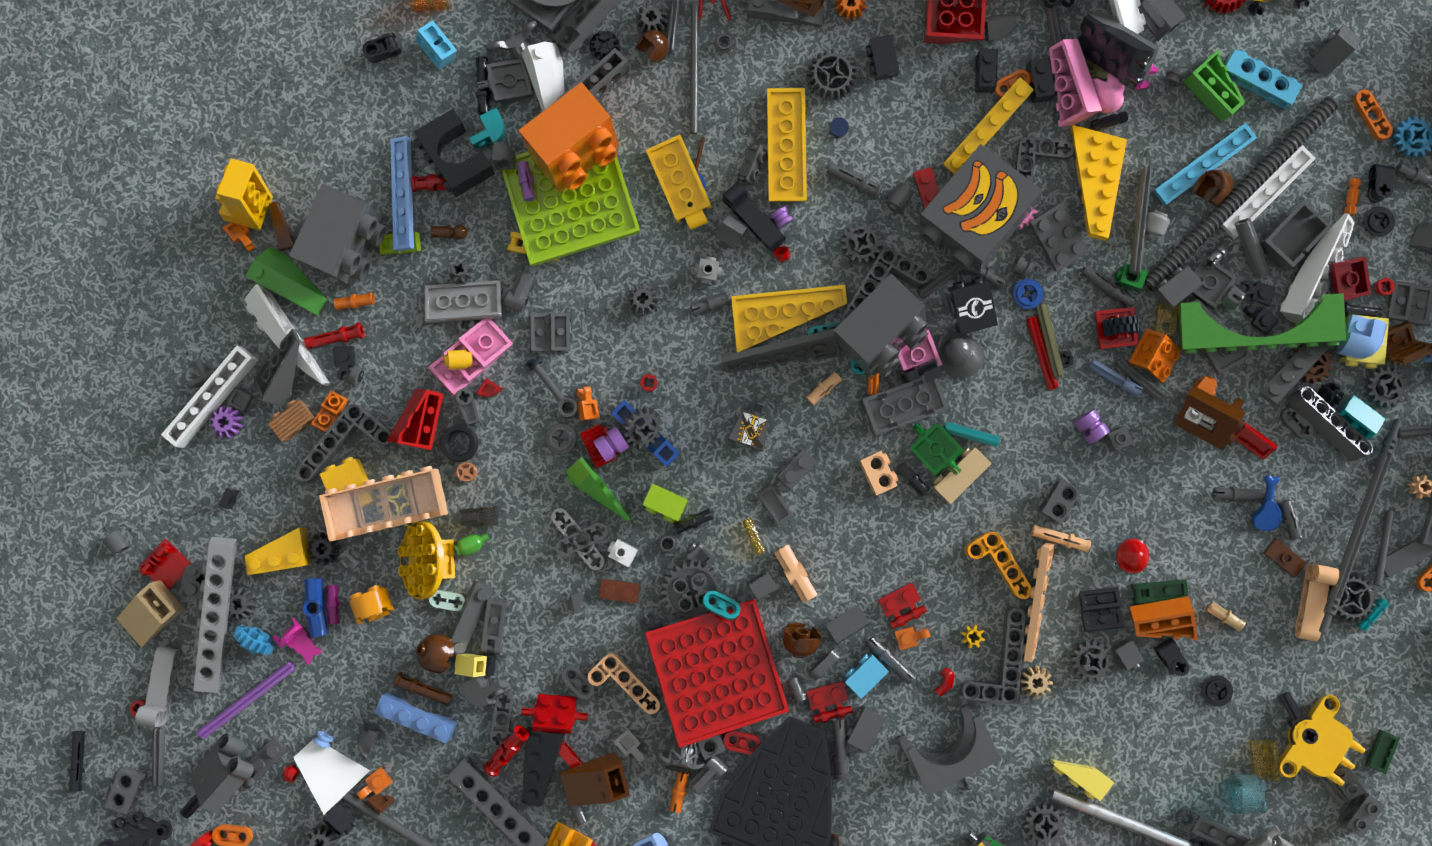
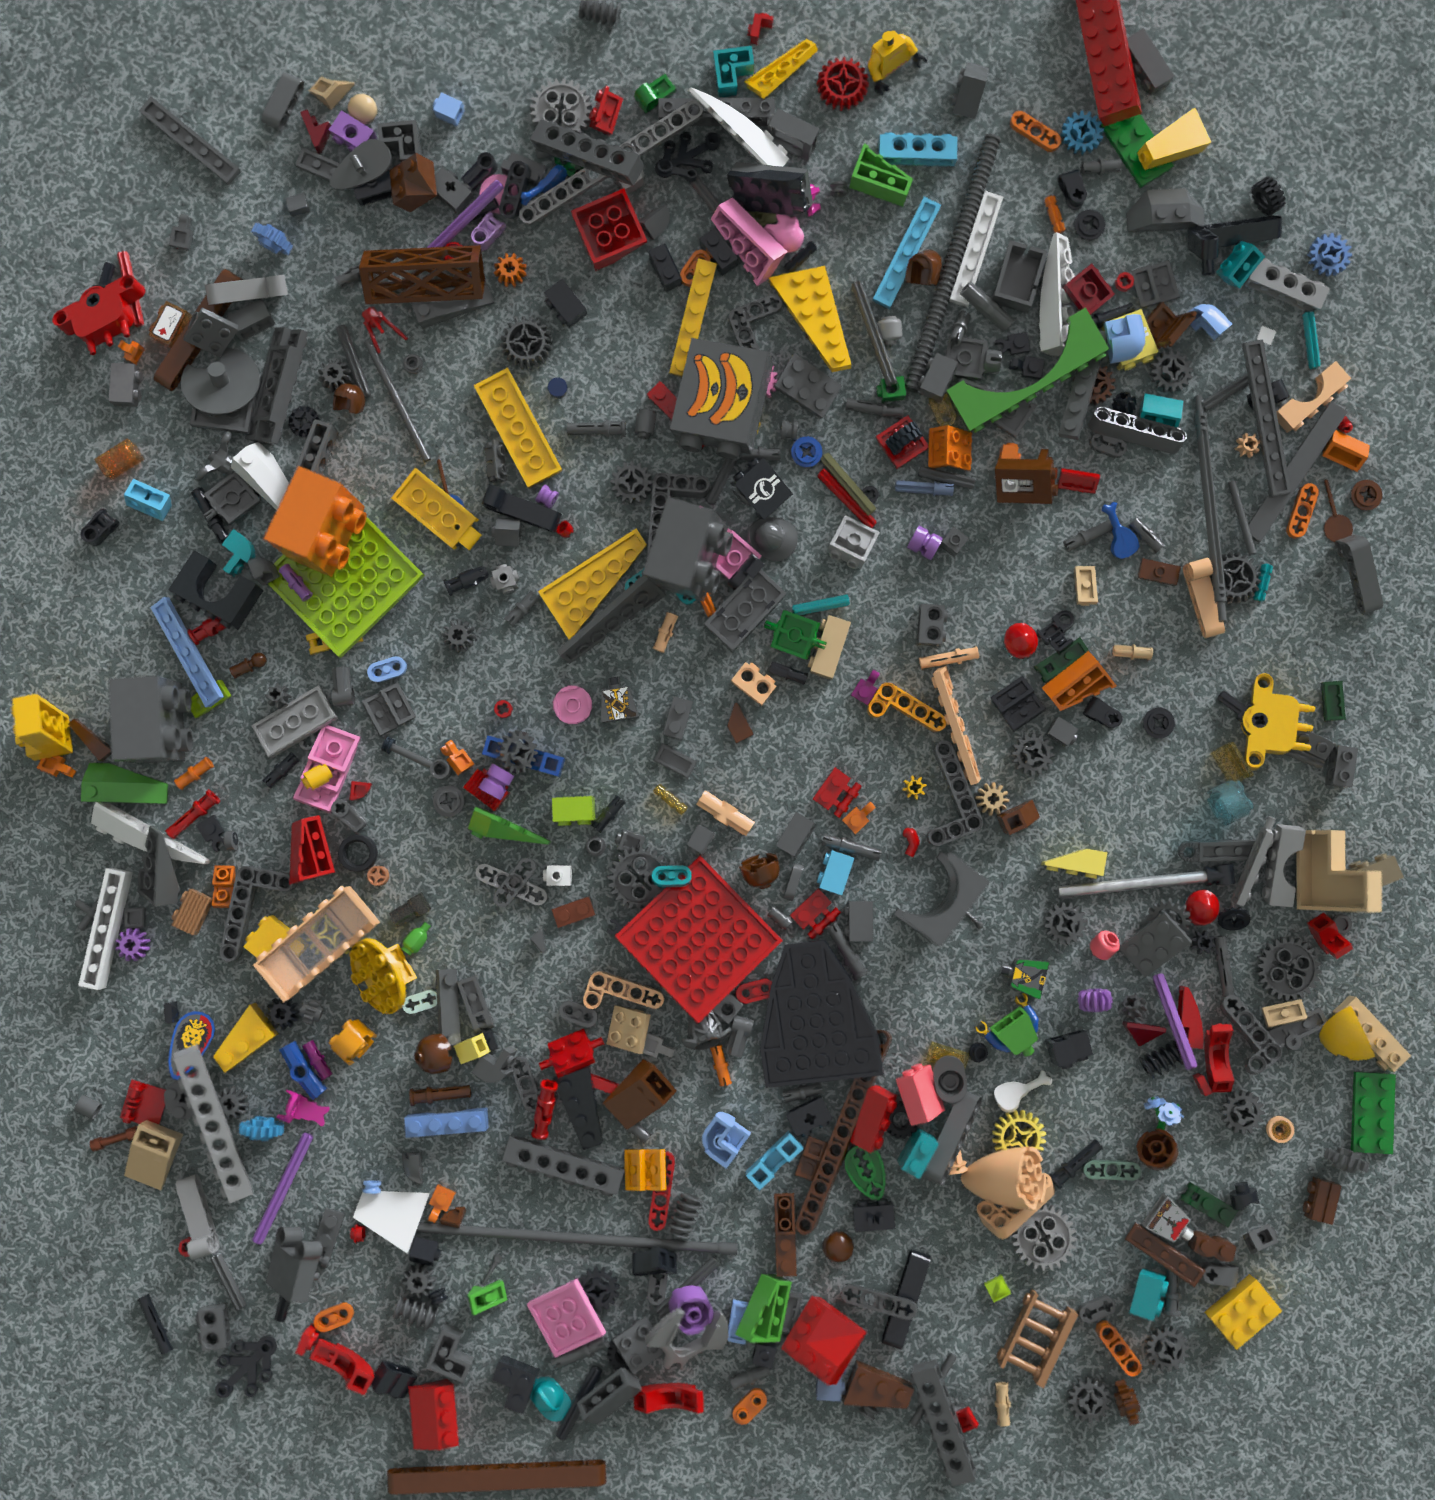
camera: 30 degrees left, 0 degrees up
(110, 579) = (100, 1143): none -> copper bar
(237, 523) = (191, 1030): none -> shield
(430, 337) = (280, 770): none -> black pin
(566, 297) = (387, 669): none -> light blue plate
(615, 718) = (628, 1029): none -> tan plate
(674, 254) = (466, 580): none -> black piece
(705, 409) = (577, 710): none -> bright pink tile
(846, 502) = (738, 725): none -> reddish brown tile
(973, 529) = (865, 690): none -> magenta plate
(1027, 394) = (852, 542): none -> light grey plate
(1050, 710) = (1018, 817): none -> reddish brown slope
(1166, 567) = (1057, 634): none -> black piece
(1214, 536) = (1085, 585): none -> tan plate

